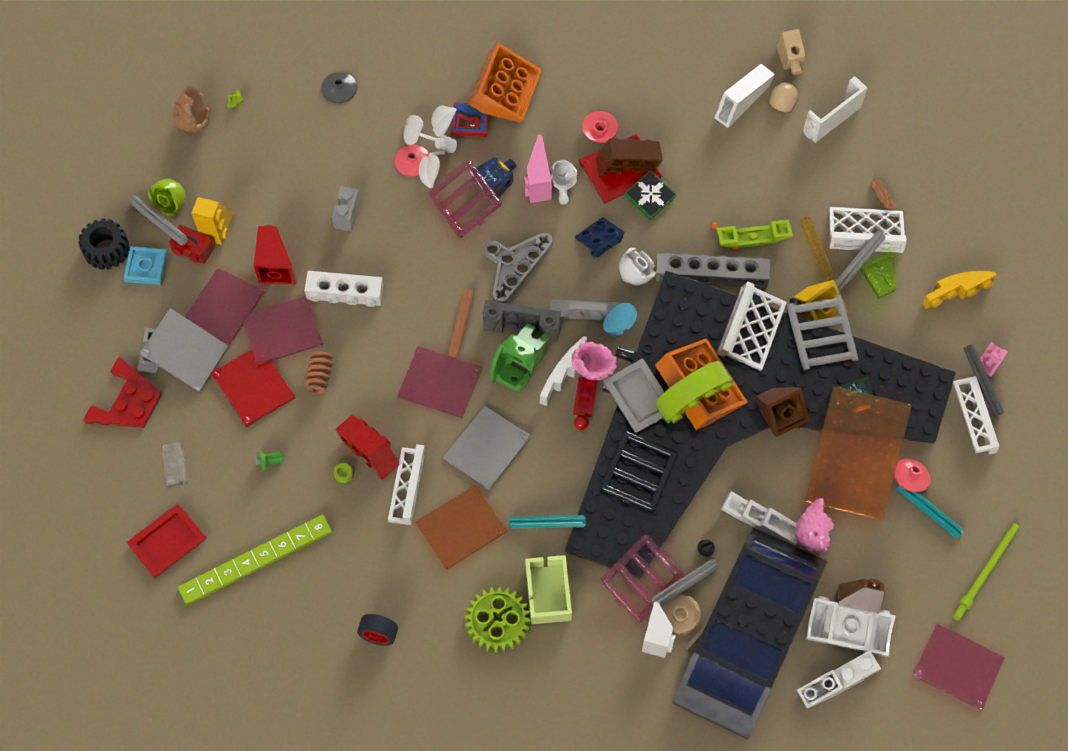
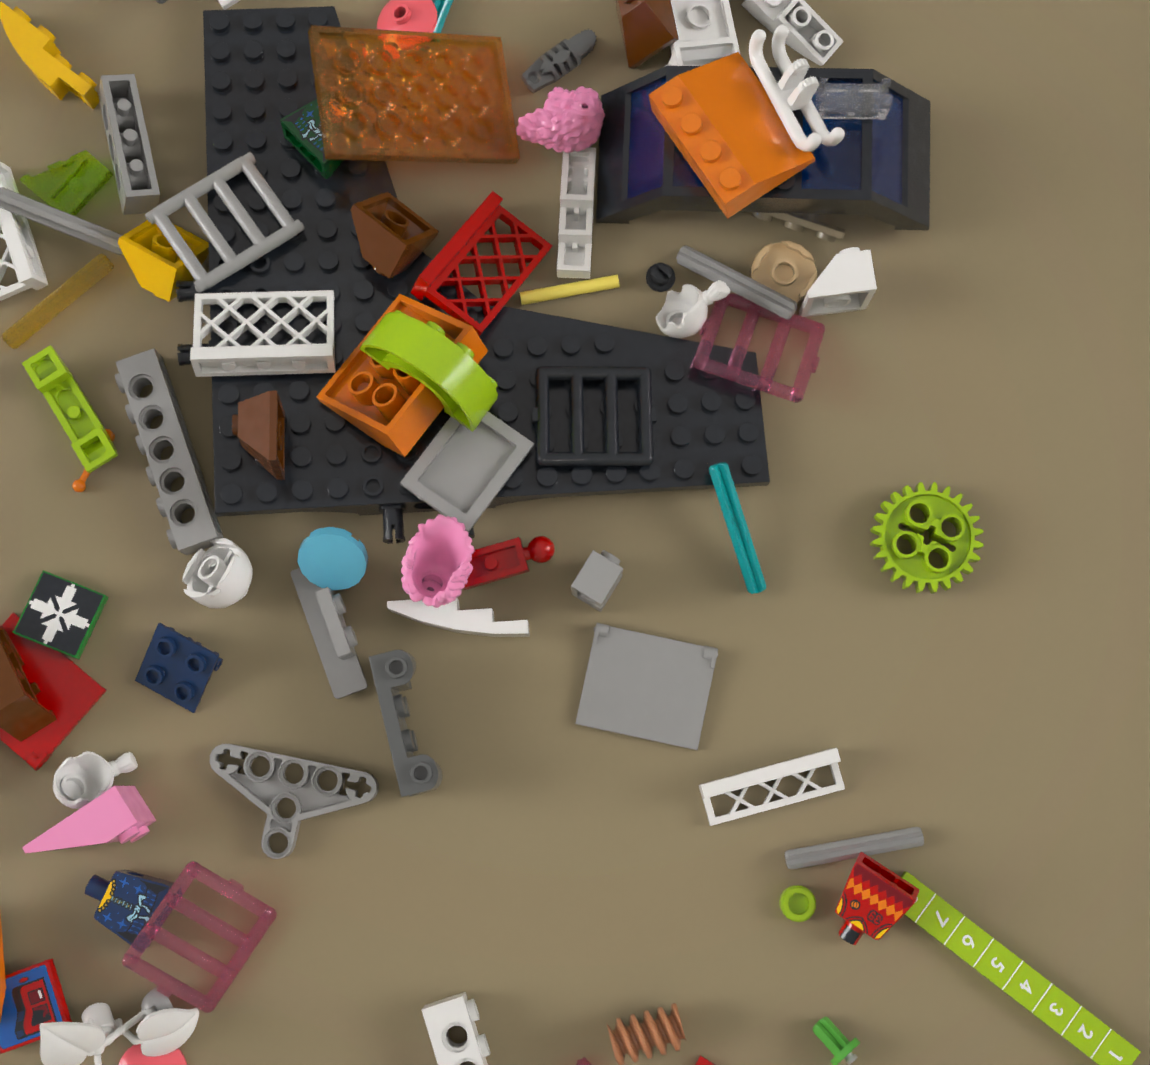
camera: 110 degrees left, 15 degrees up
(328, 503) = (873, 900): none -> torso
(356, 511) = (852, 847): none -> light grey axle
(368, 444) = (741, 883): red wedge -> none
(377, 629) = (1039, 712): black wheel -> none
(439, 382) = (564, 819): clear pink piece -> none
(444, 168) = (151, 1003): none -> hinge
(460, 323) = (443, 833): nougat axle -> none
(461, 527) = (800, 666): clear orange piece -> none
(522, 350) = (459, 696): bright green piece -> none
(548, 590) = (848, 477): yellowish green piece -> none
(551, 439) = (597, 579): none -> light grey brick
(678, 548) = (687, 310): none -> white hair
(692, 302) = (262, 431): none -> reddish brown slope
(719, 497) = (569, 289): none -> light yellow bar
(756, 664) = (853, 100): none -> clear hinge
(762, 443) = (456, 253): none -> red fence
(762, 589) = (728, 131): none -> orange slope
(771, 629) = (791, 91): none -> white piece
(856, 545) = (559, 60): none -> dark grey hinge
(890, 308) = (128, 143): none -> light grey brick

